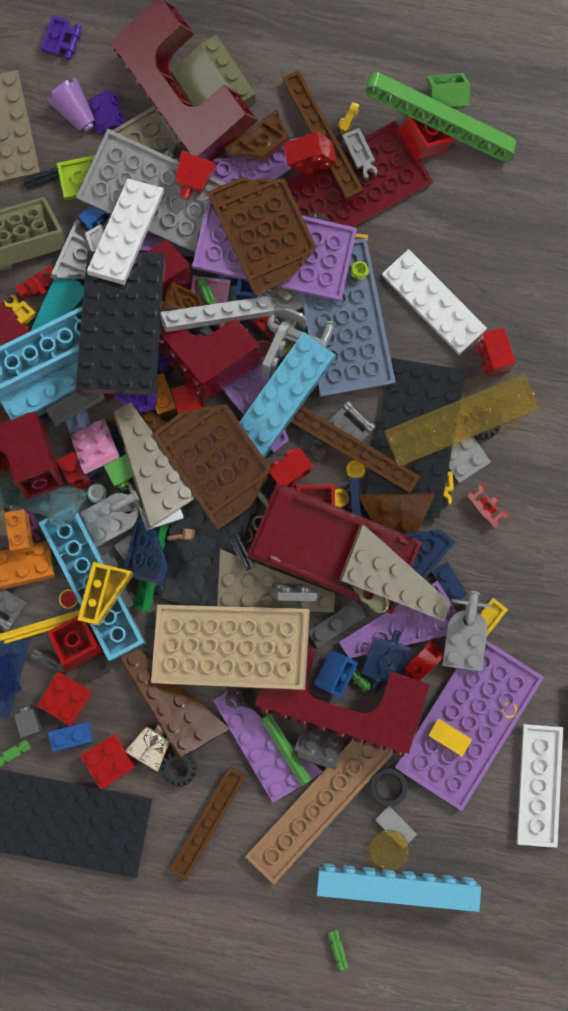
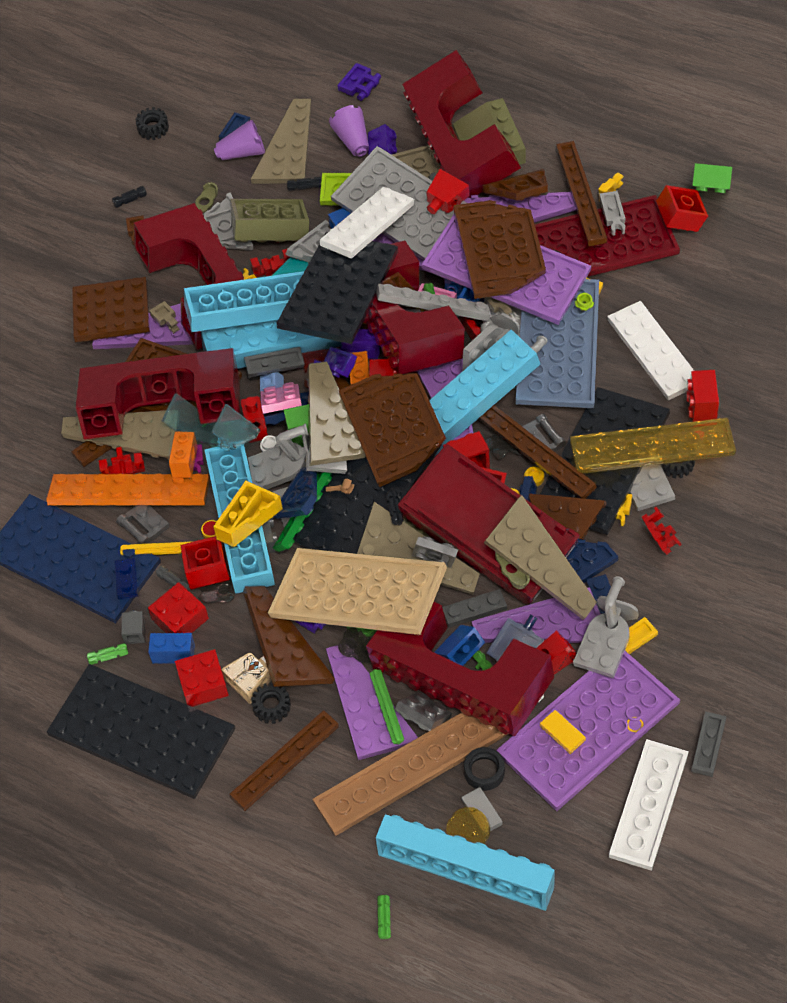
camera: 20 degrees right, 25 degrees down
(310, 153) = (562, 197): red brick -> none
(440, 116) = (703, 201): bright green beam -> none

